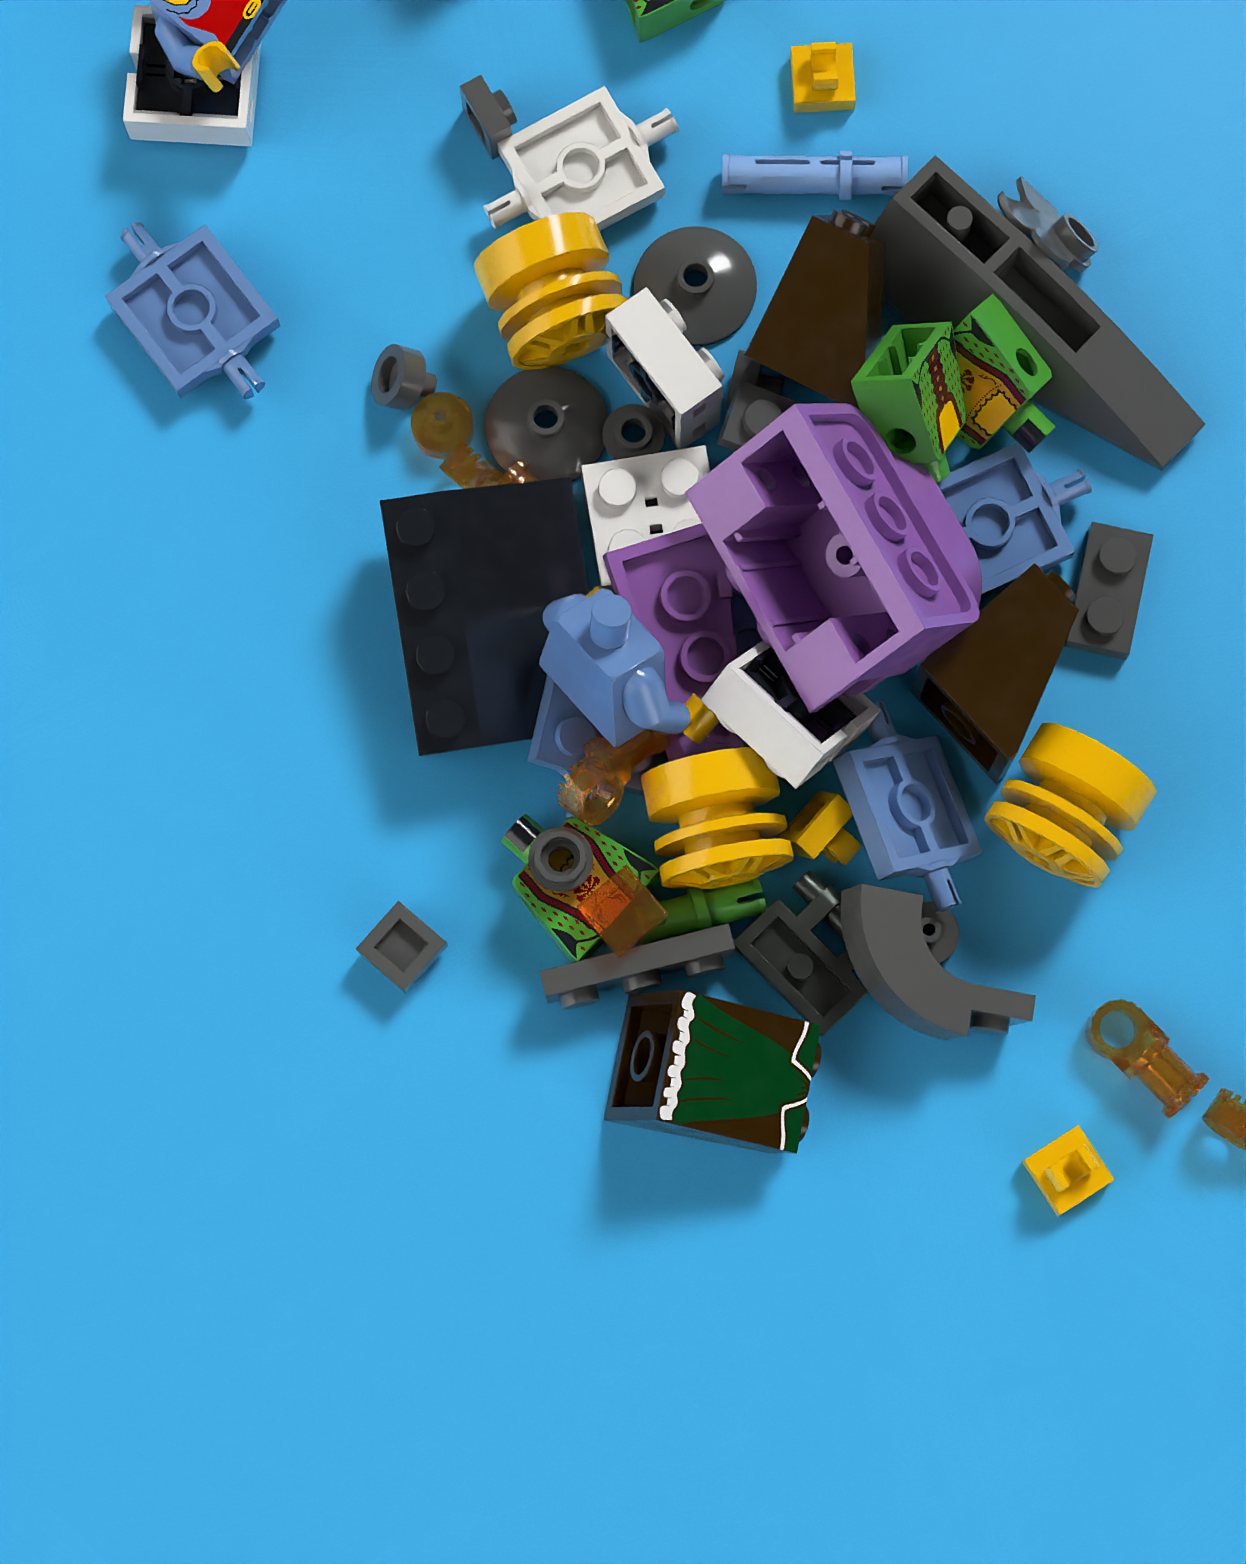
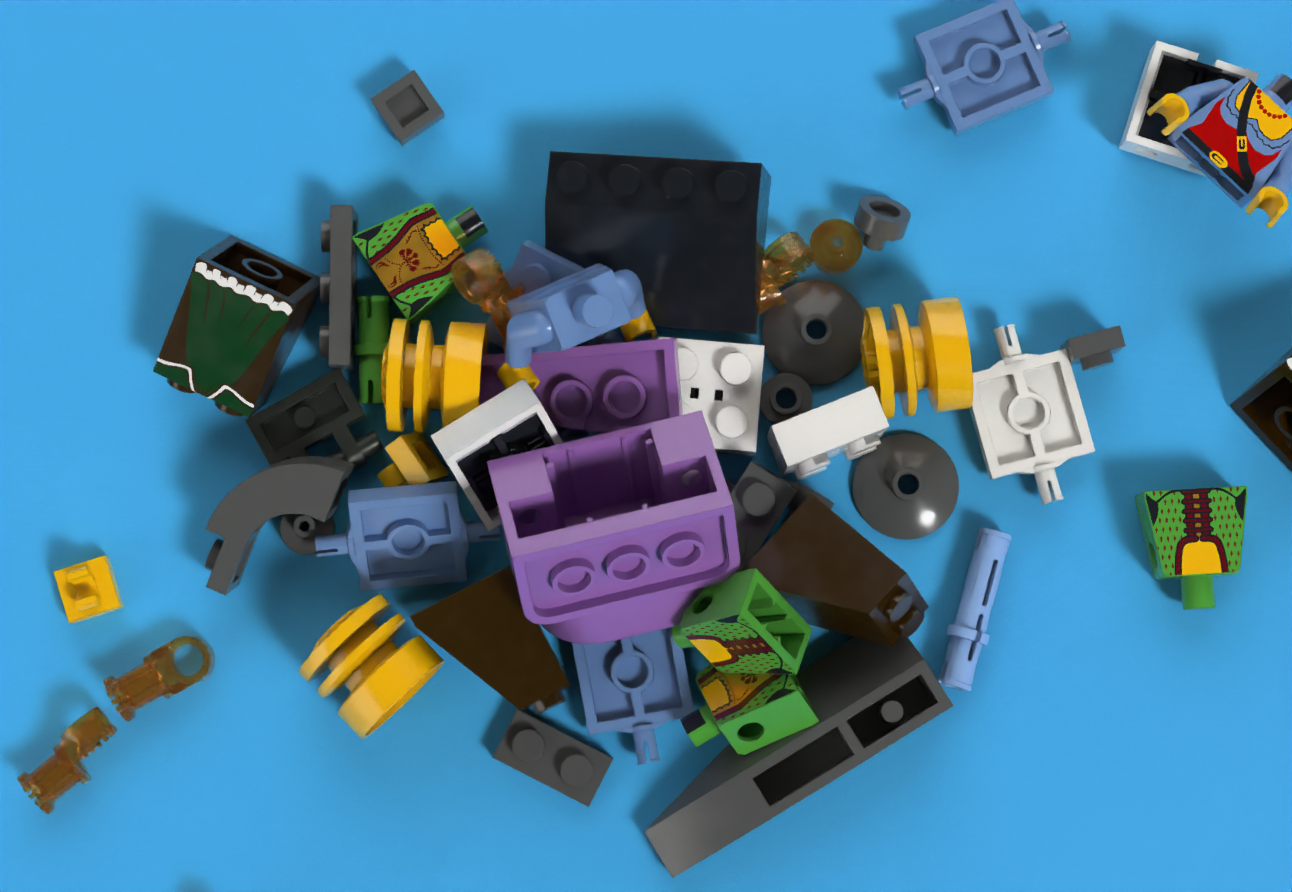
camera: 100 degrees right, 5 degrees up
(560, 839) = (433, 225): dark grey plate -> none
(622, 911) = (379, 281): clear orange tile -> none
(822, 77) = (1062, 641): yellow tile -> none
(1059, 238) = (868, 792): dark grey plate -> none

